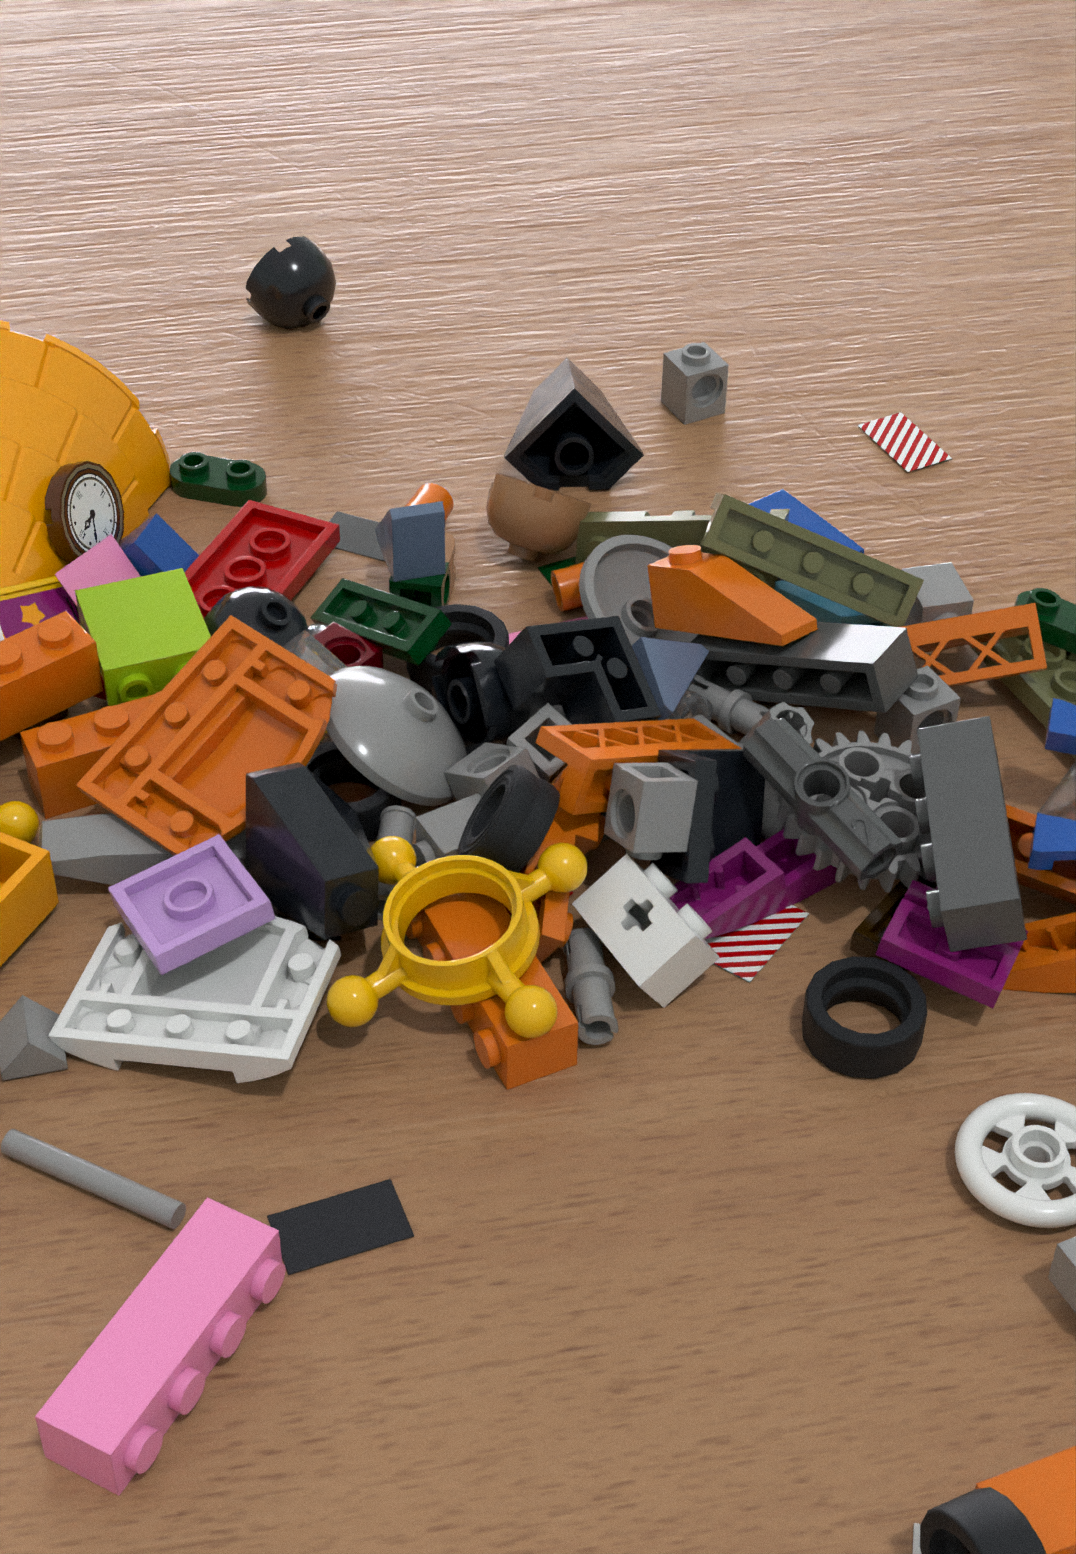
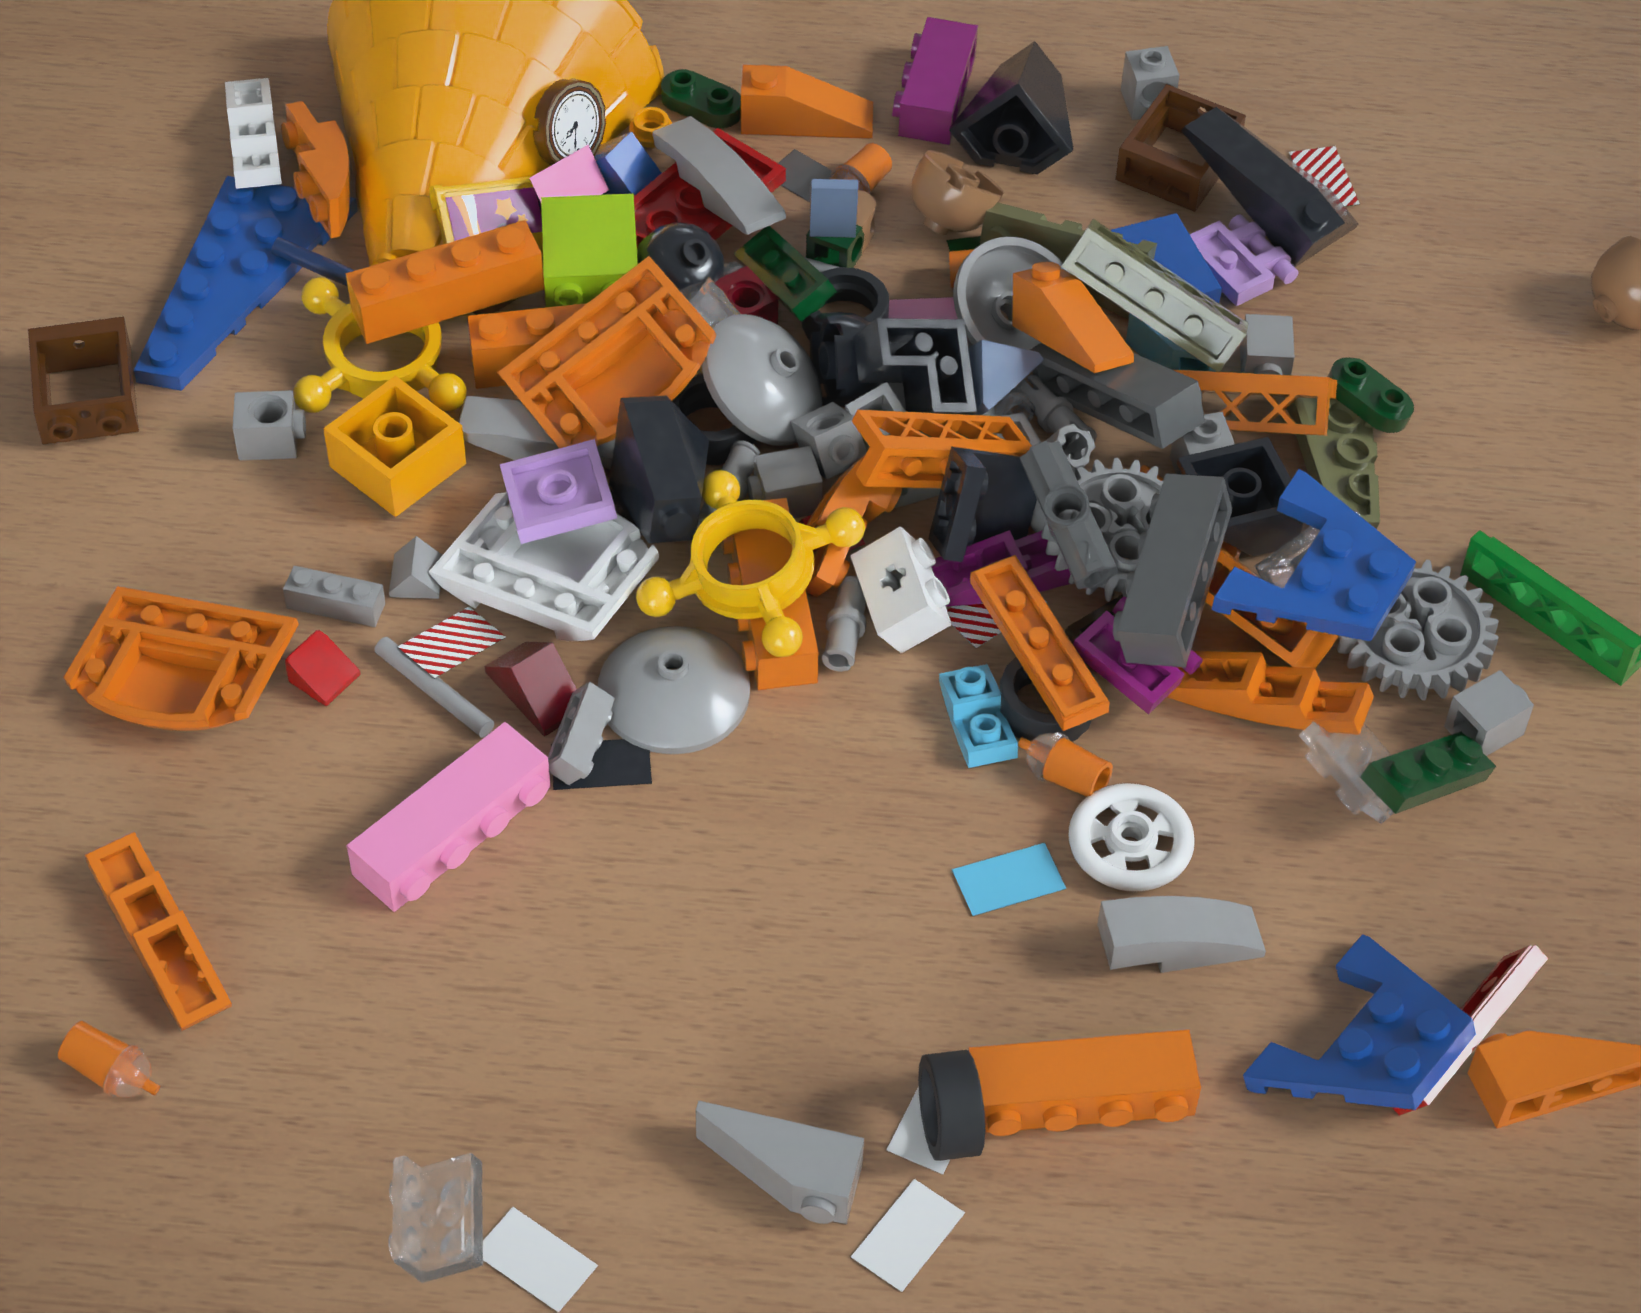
camera: 15 degrees right, 10 degrees up
(100, 1117) = (451, 642): none -> sticker
(175, 511) = (645, 122): none -> light orange plate
(229, 1144) = (535, 682): none -> dark red slope
(278, 540) = (723, 178): none -> light grey slope
(306, 1192) = (580, 733): none -> light grey piece
(322, 465) = (796, 104): none -> orange slope
(403, 1114) = (679, 707): none -> light grey dish
(469, 419) = (935, 80): none -> magenta brick
(511, 819) = (816, 480): black tyre -> none
(650, 809) = (927, 494): light grey brick -> none
(747, 459) = (1158, 170): none -> reddish brown window
(781, 1053) = (975, 715): none -> medium azure slope
(839, 954) = (1039, 643): none -> orange tile
(869, 523) = (1234, 265): none -> lavender plate
(878, 457) = (1273, 190): none -> black wedge
(907, 1249) = (1008, 879): none -> medium azure sticker
(920, 1089) = (1066, 763): none -> orange piece
(1019, 734) = (1254, 485): none -> black slope

